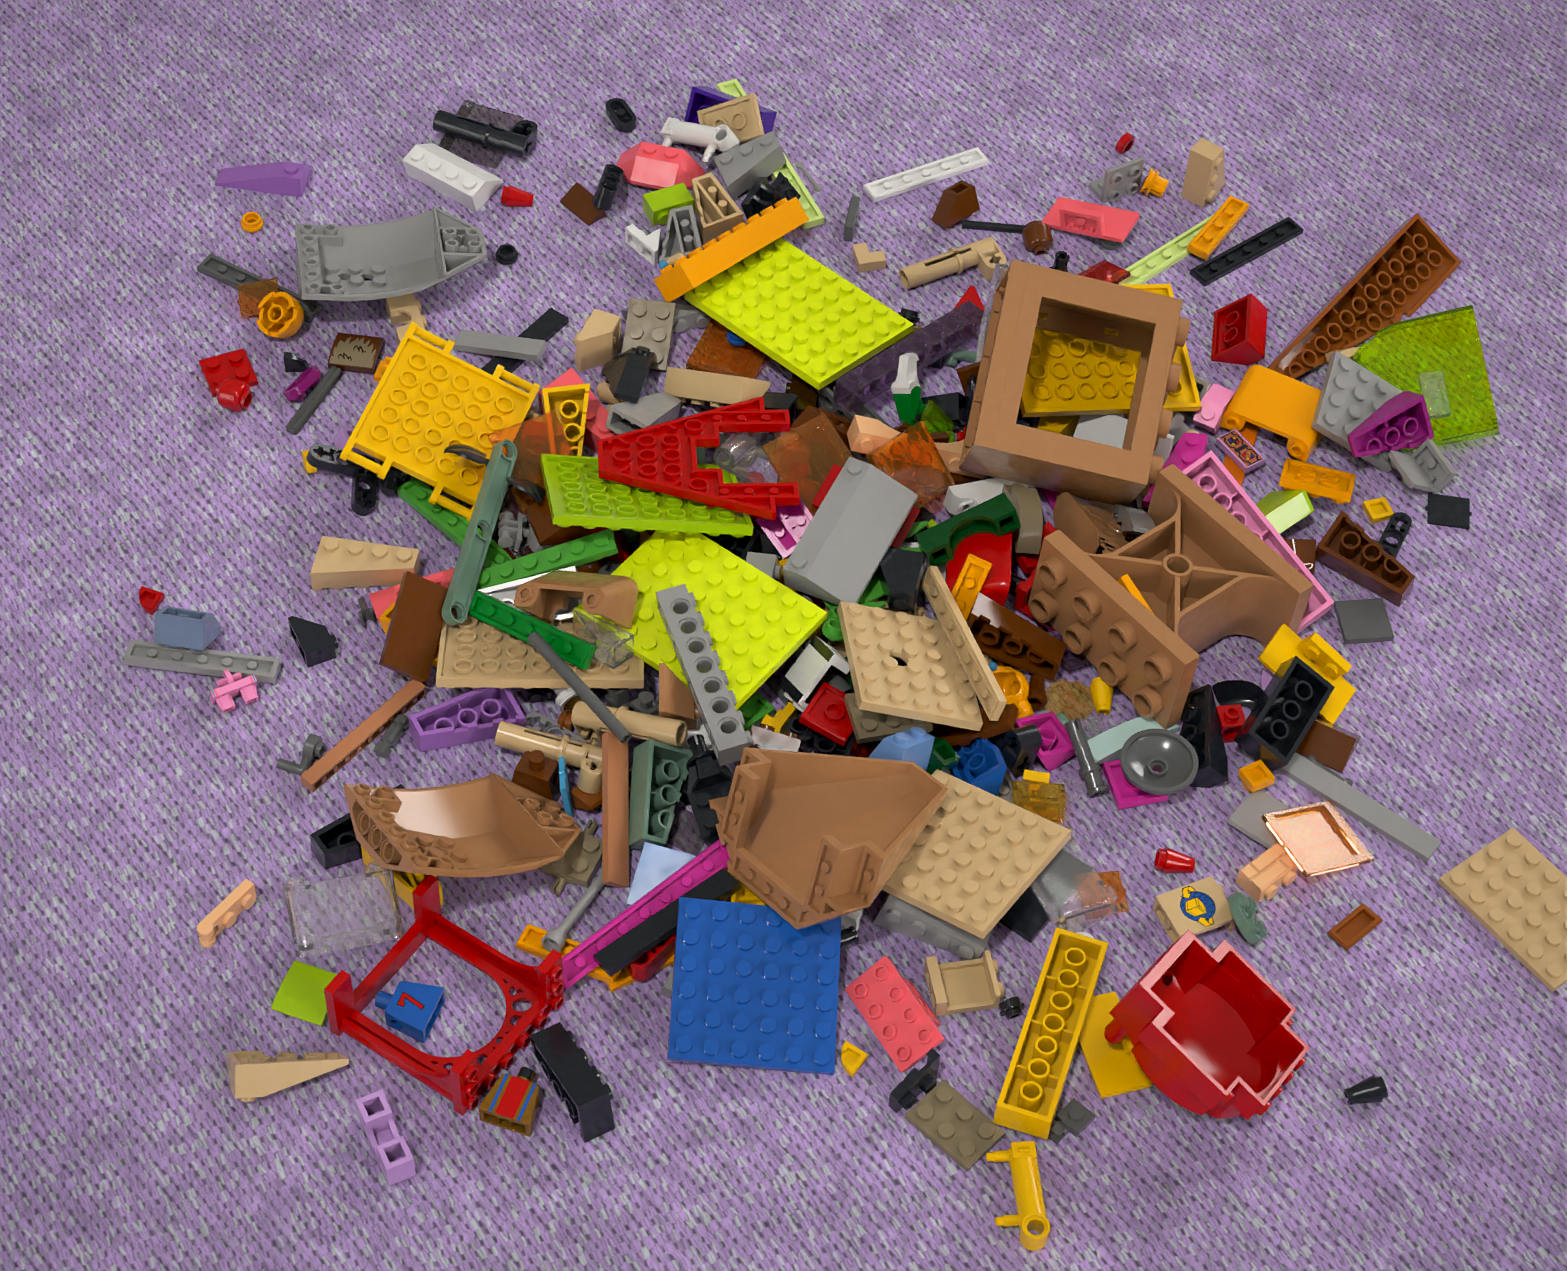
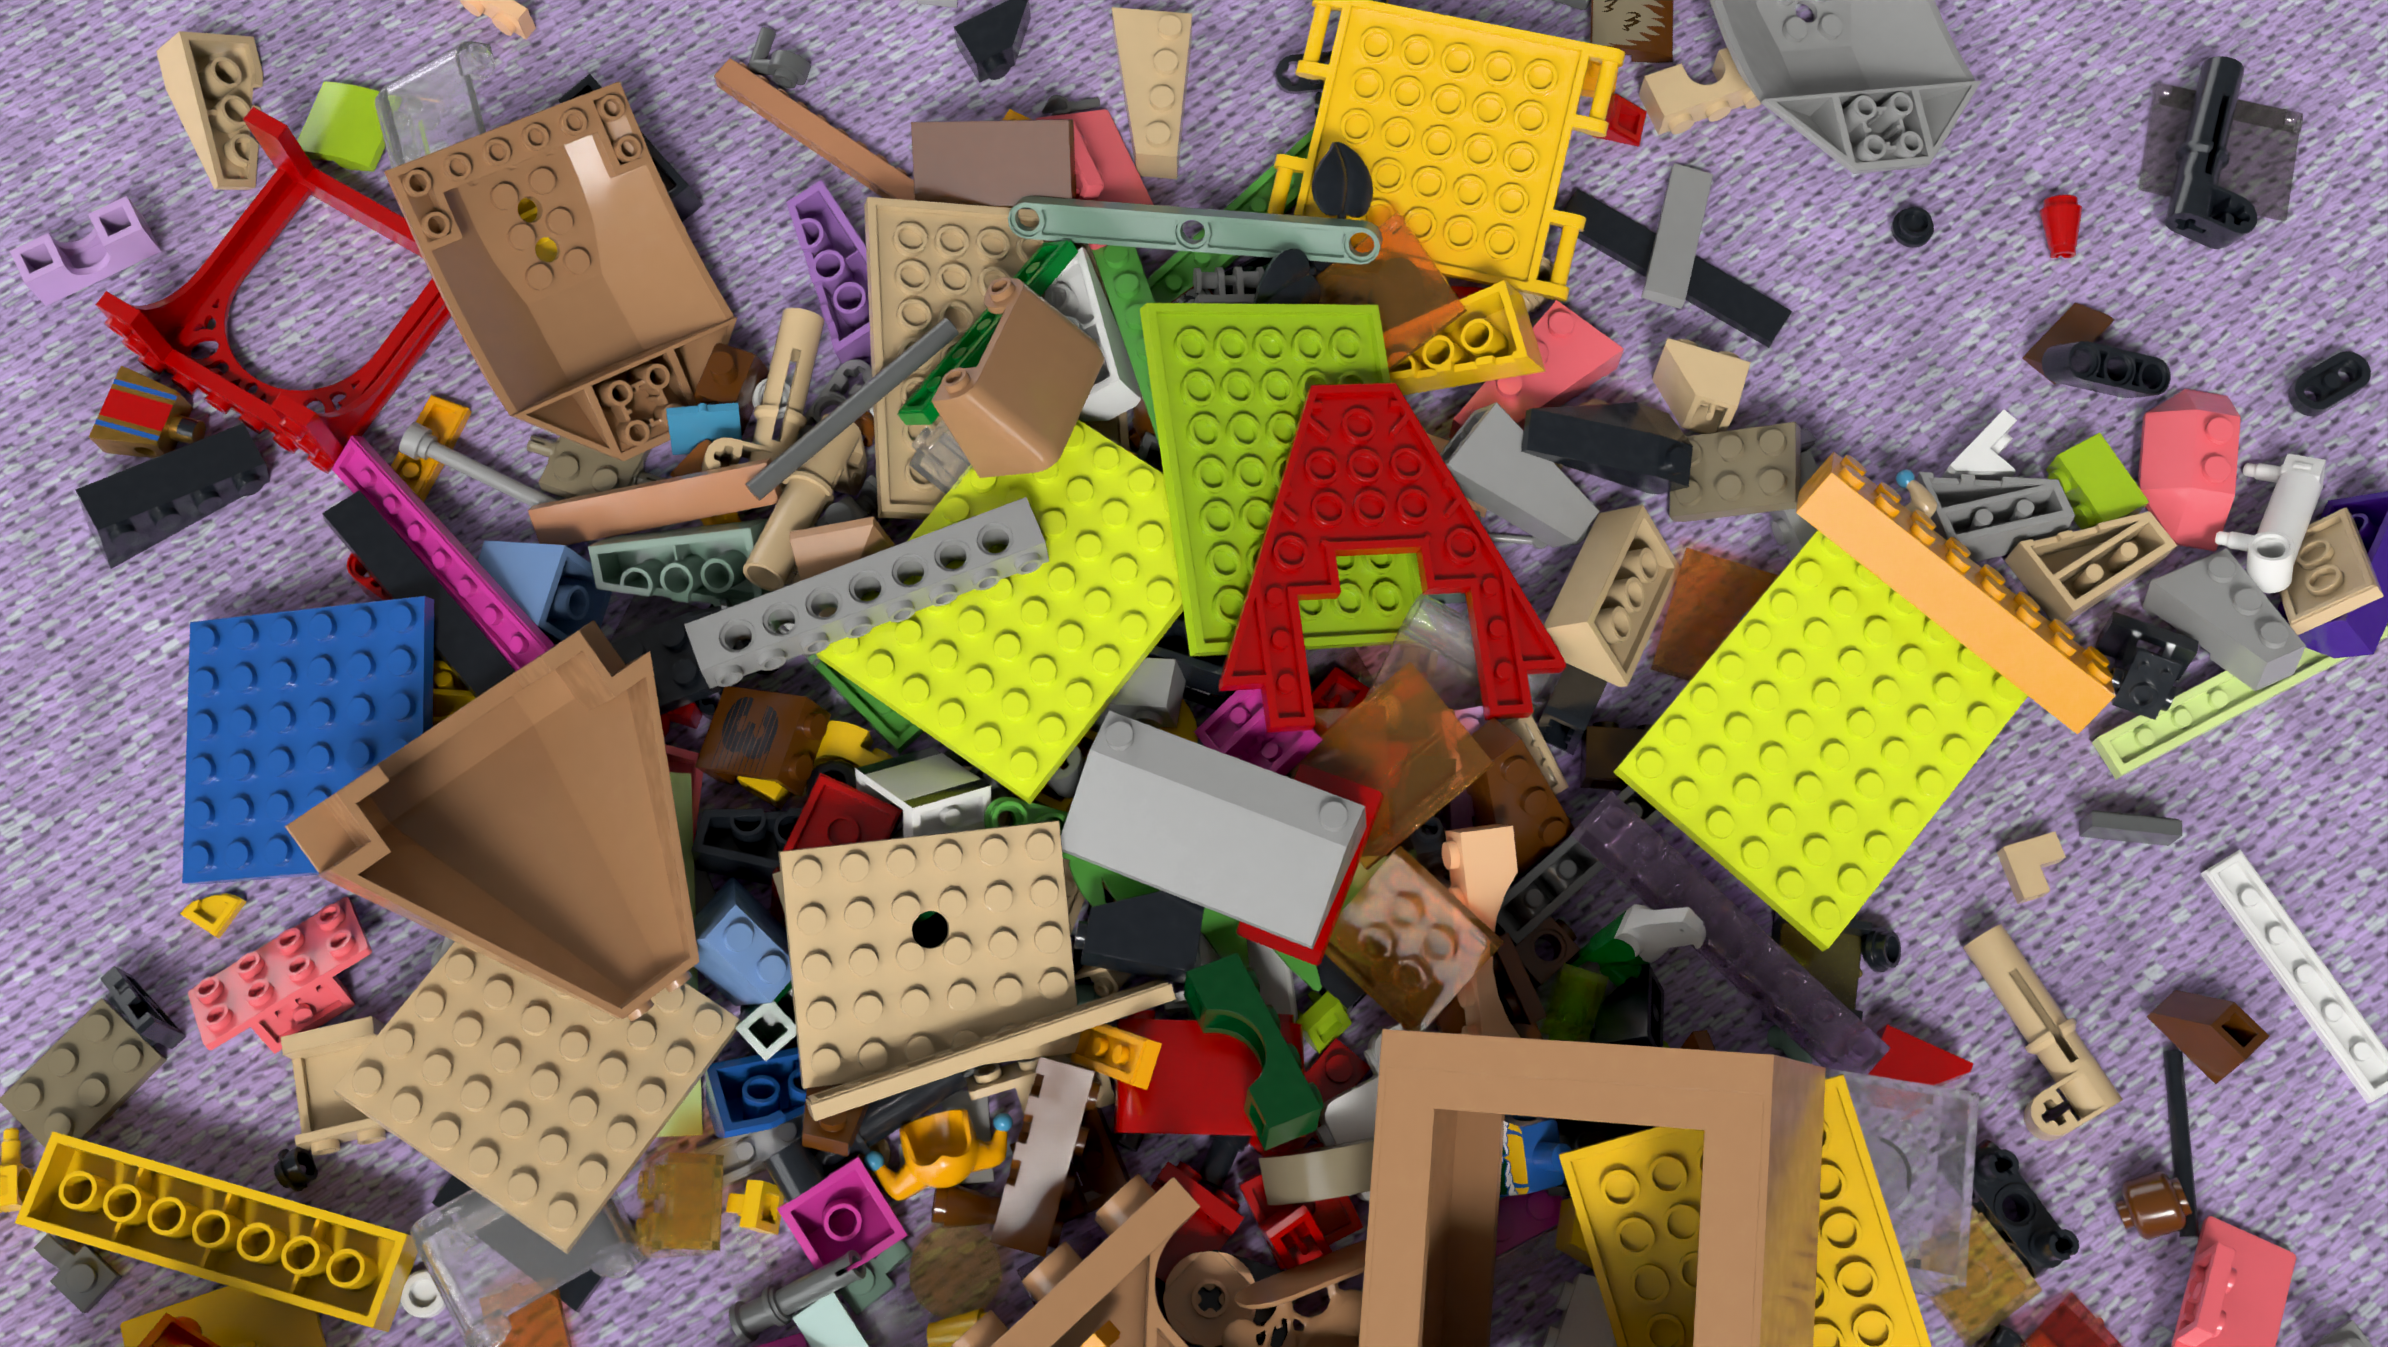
camera: 90 degrees right, 20 degrees up
(391, 736) = (797, 168): dark grey axle -> none
(412, 1008) = (311, 263): blue torso -> none
(451, 175) = (2093, 111): white slope -> none
(817, 187) = (2272, 726): light grey hinge -> none

